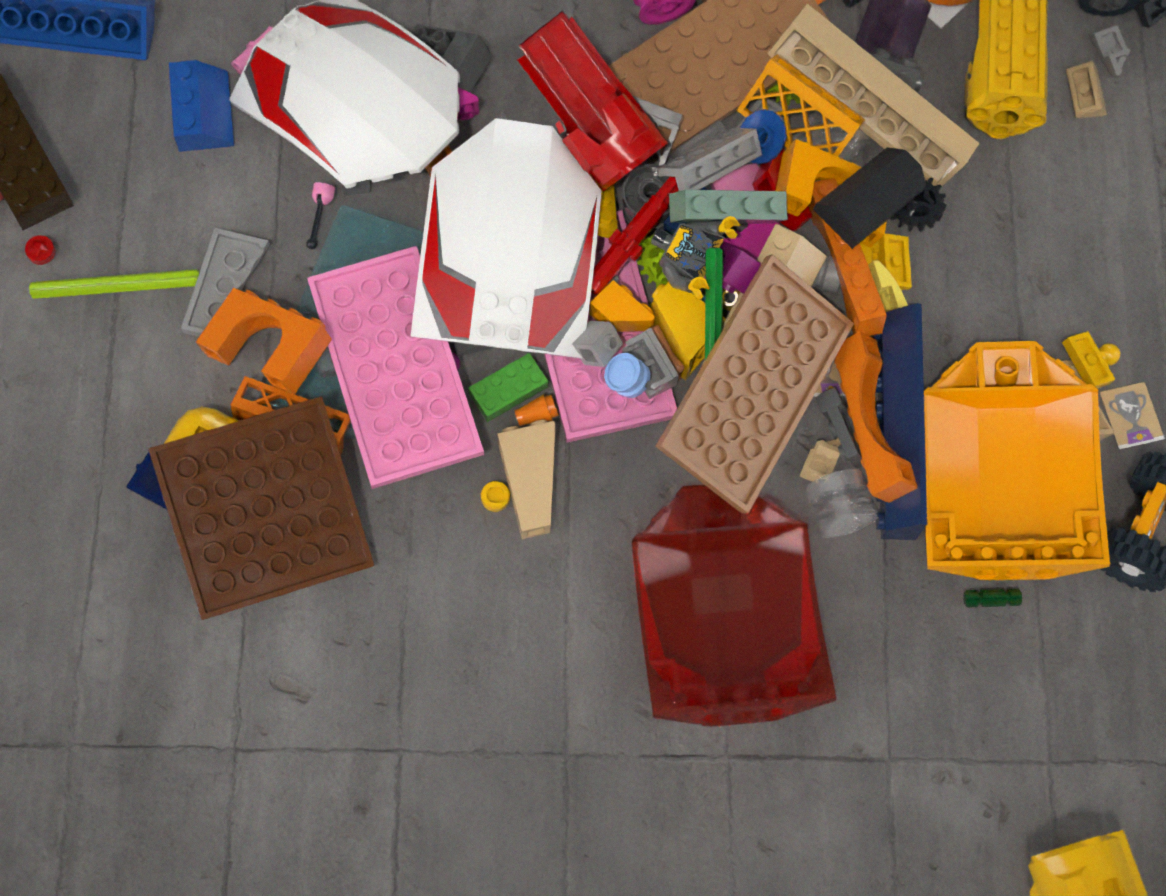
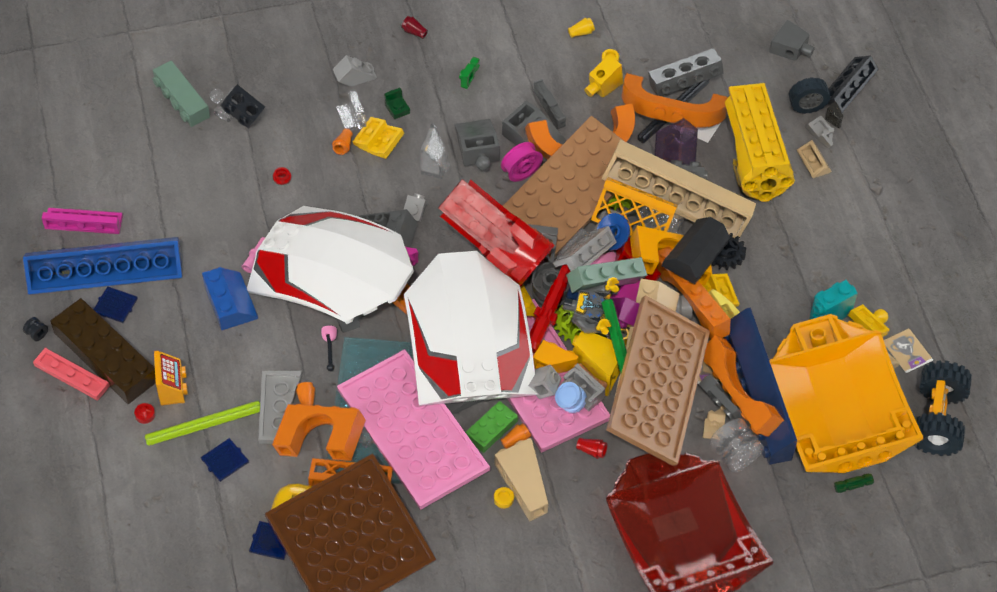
camera: 10 degrees left, 15 degrees down
(44, 78) = (115, 304): none -> clear blue piece
(83, 209) = (169, 378): none -> light orange slope
(130, 345) = (224, 459): none -> clear blue piece
(265, 278) = (306, 393): none -> orange cone
(496, 30) = (415, 205): none -> light grey bracket
(639, 453) = (593, 447): none -> red cone
(1047, 321) = (836, 300): none -> teal brick
(1137, 29) = (834, 115): none -> clear smoke slope

